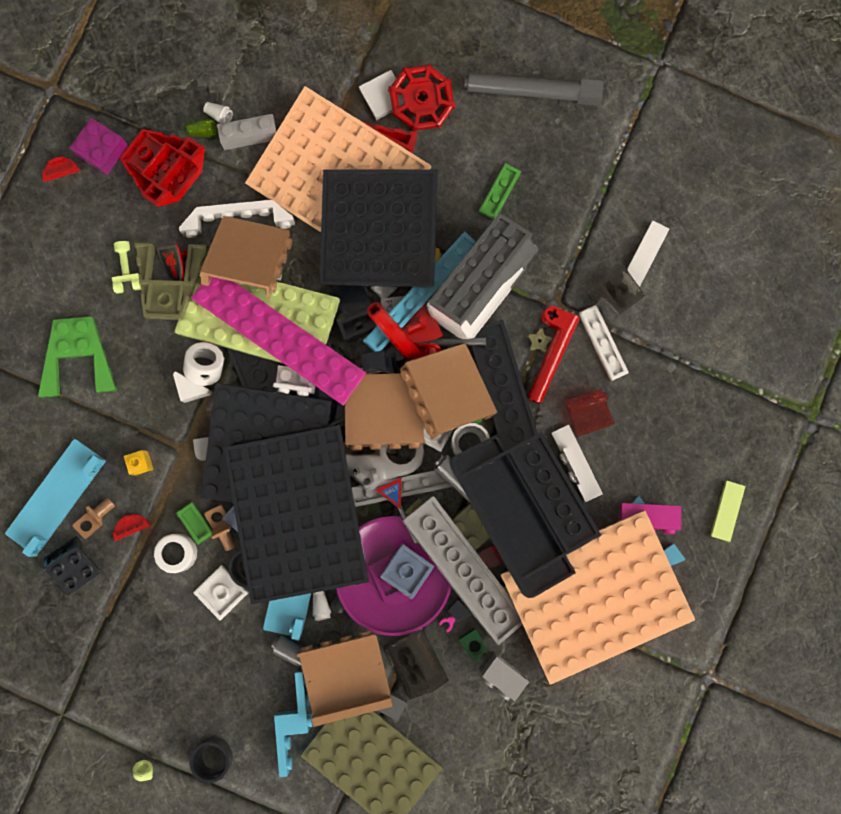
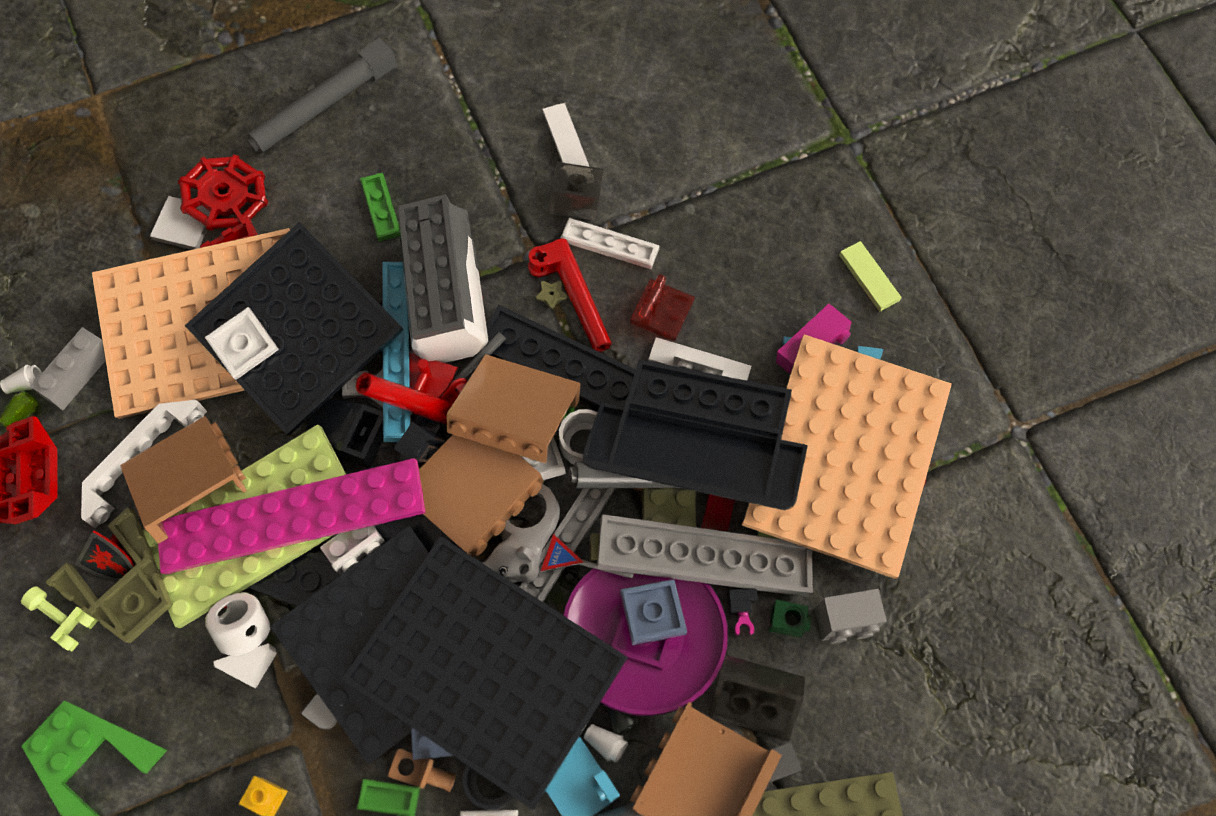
camera: 45 degrees left, 15 degrees down
(342, 210) = (241, 343): none -> white tile

